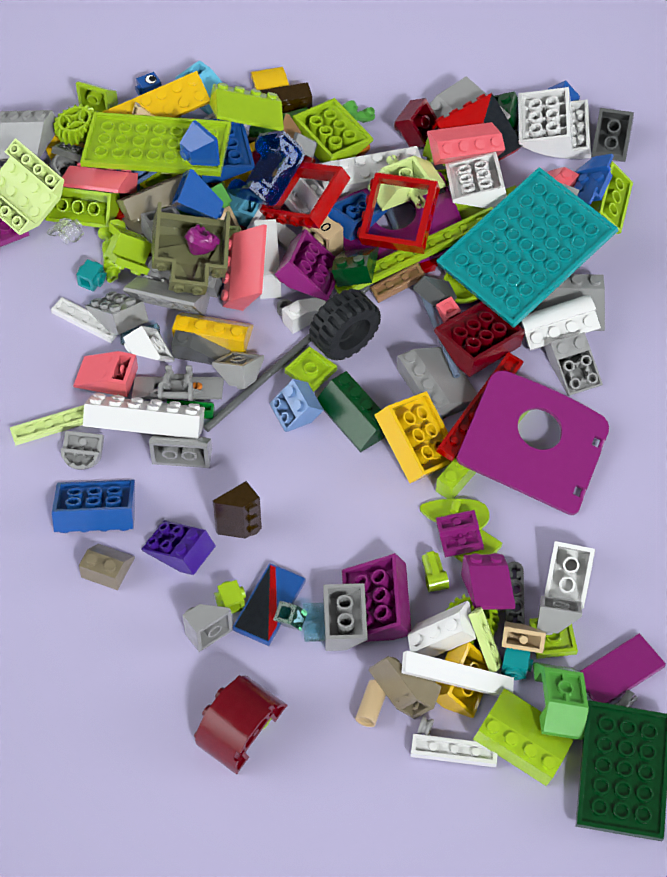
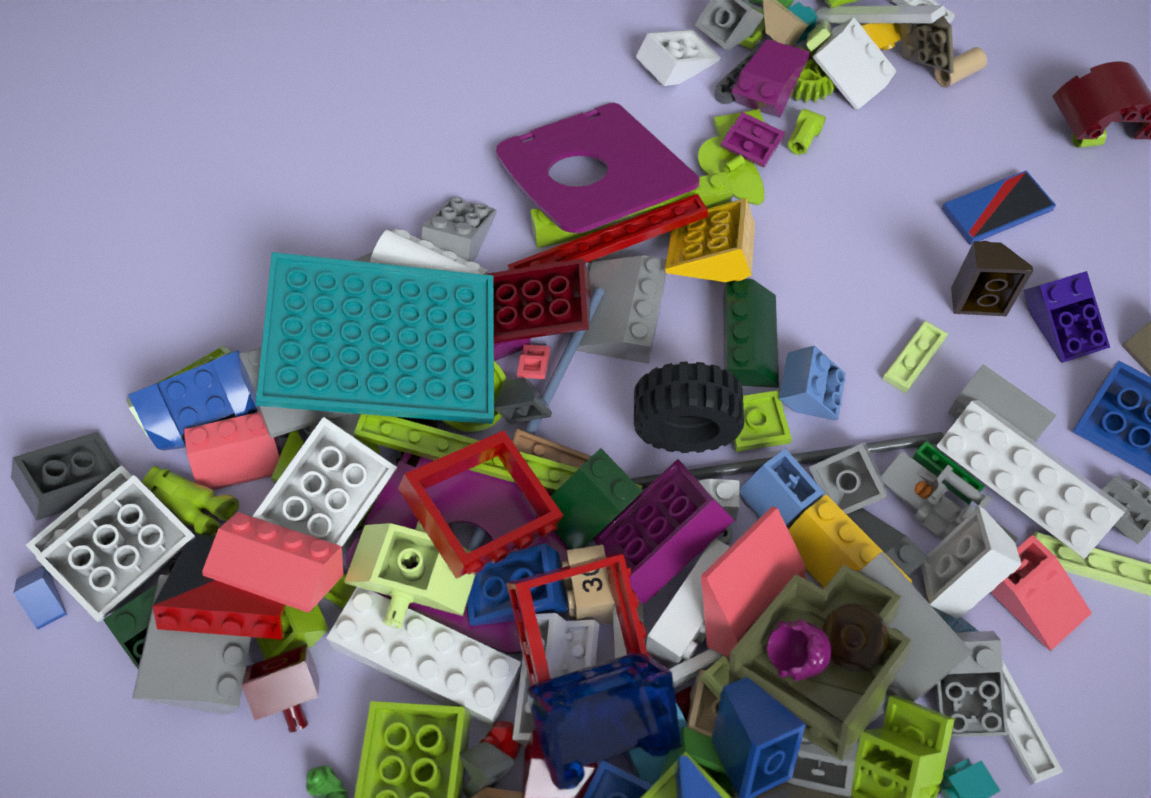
camera: 140 degrees left, 5 degrees up
(180, 254) = (856, 636): none -> dark brown tile
(207, 624) = (1091, 206): light grey slope -> none
(230, 596) = (1041, 229): lime brick -> none
(253, 464) = (915, 356): none -> yellowish green tile
(267, 340) = (781, 485): none -> medium blue slope
(290, 615) = (992, 168): brick -> none
(314, 622) = (963, 164): clear light blue slope -> none
(344, 616) = (936, 137): light grey slope -> none
(384, 596) = (886, 140): magenta slope -> none
(545, 160) = (188, 500): none -> lime piece

